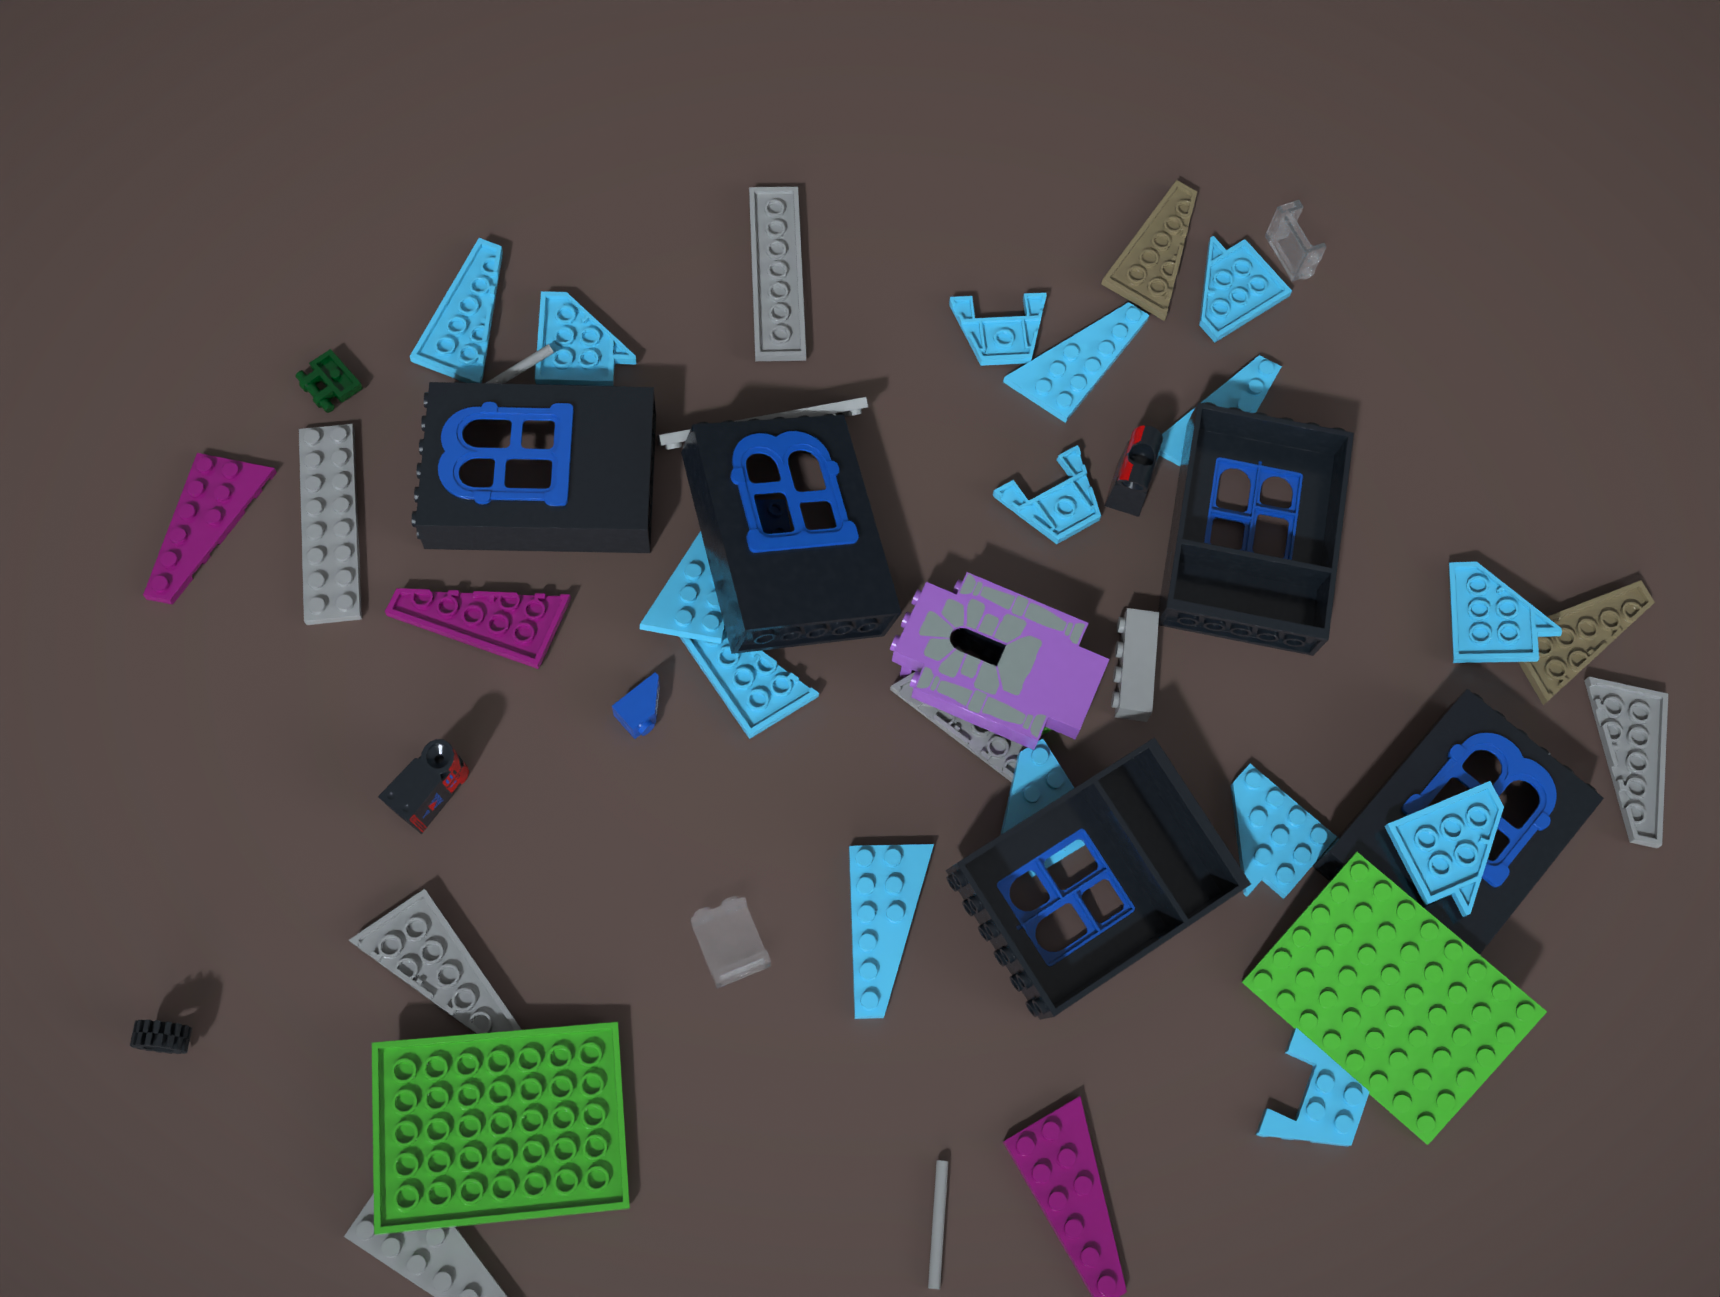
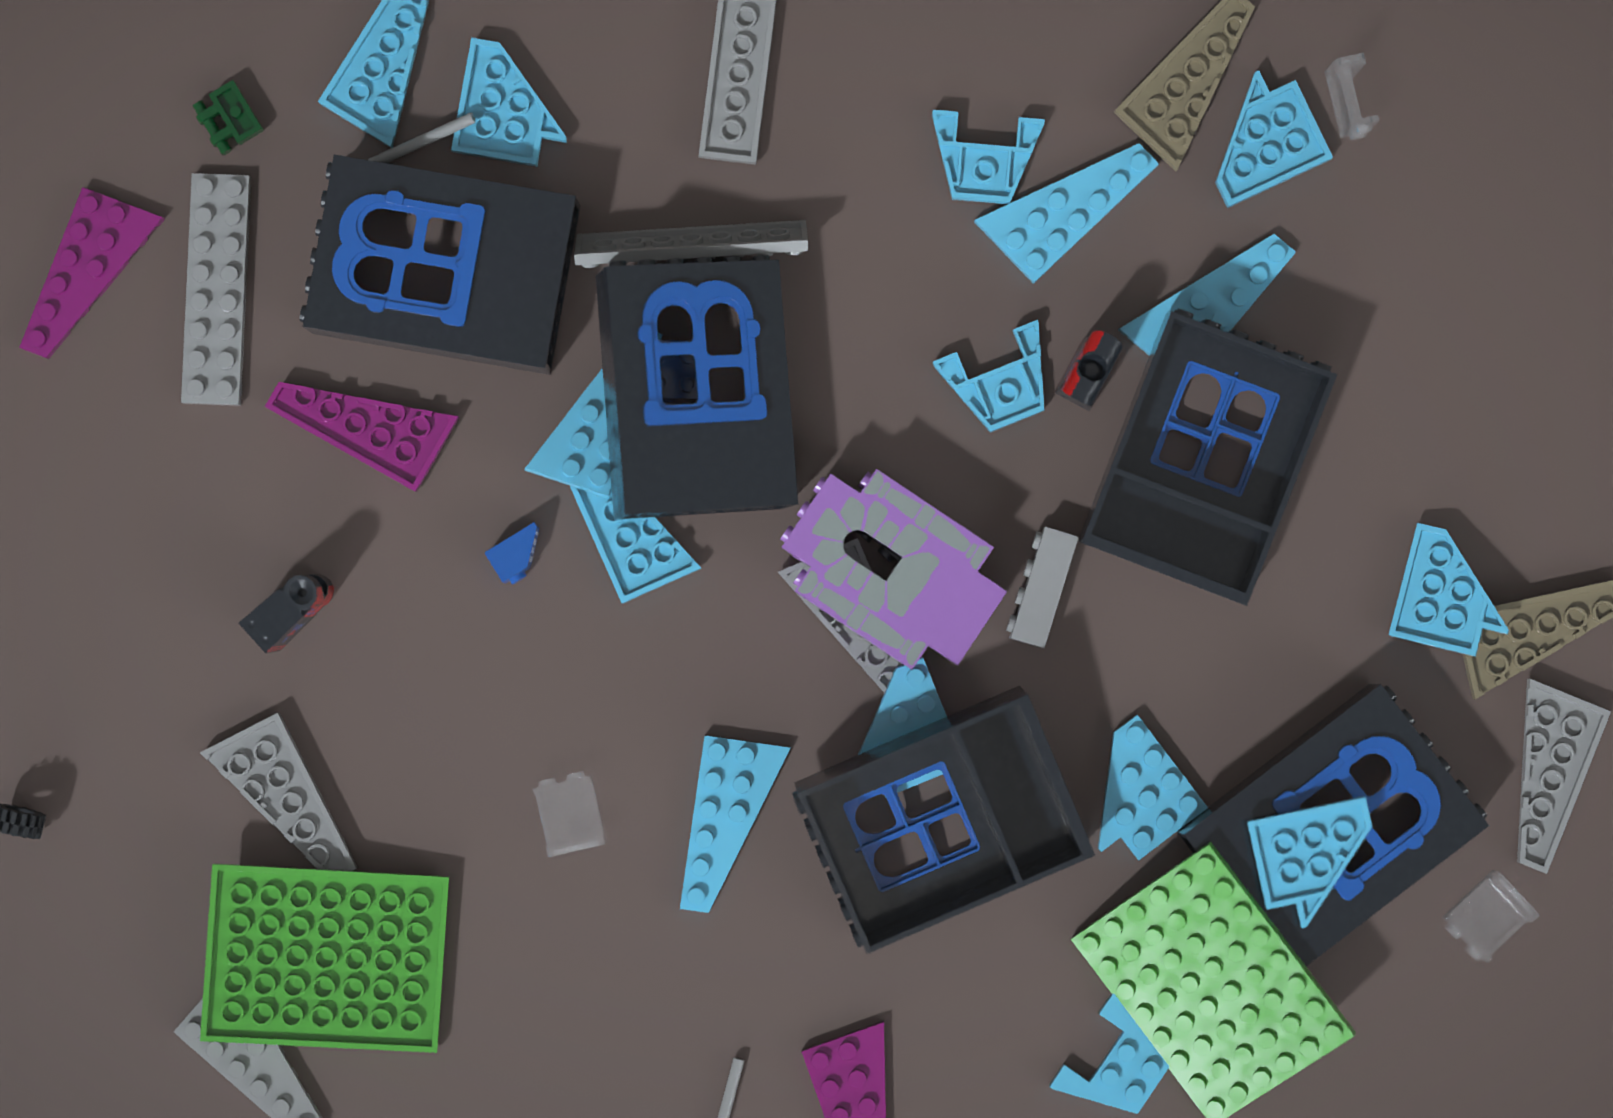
camera: 20 degrees right, 20 degrees up
(1623, 893) = (1489, 916): none -> clear panel

